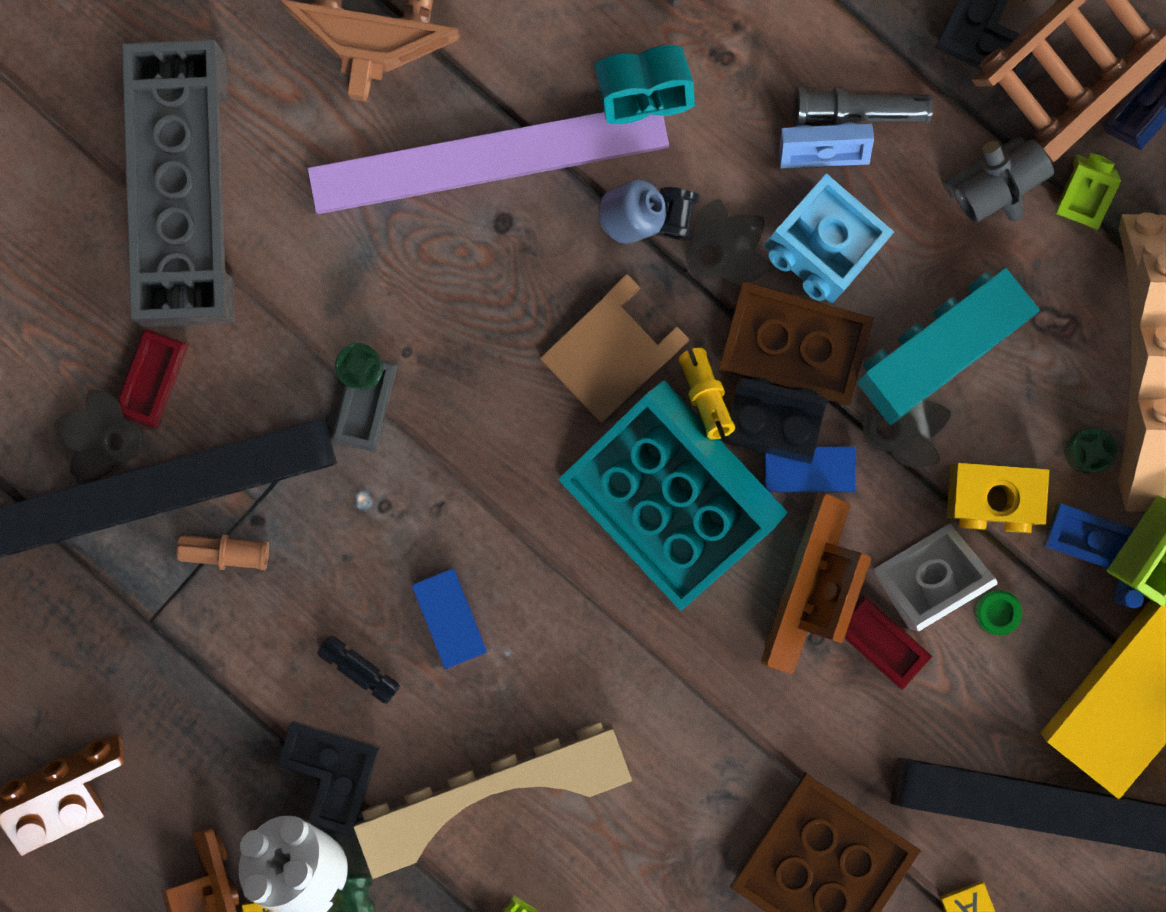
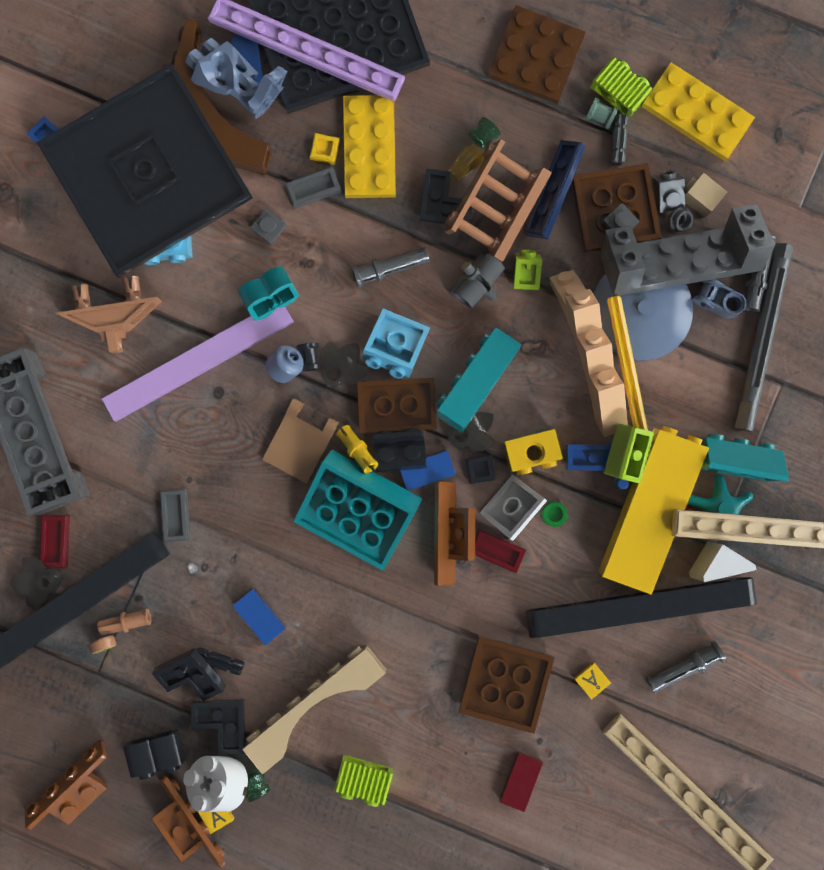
camera: 15 degrees left, 0 degrees up
(175, 576) = (102, 644): none -> nougat tile
(203, 787) = (154, 754): none -> black brick
(309, 665) = (189, 669): none -> black plate
(356, 359) = (159, 500): clear green wheel -> none
(826, 145) = (377, 293): light blue plate -> none
(899, 496) = (480, 469): none -> black tile
(1098, 447) = (579, 410): clear green wheel -> none

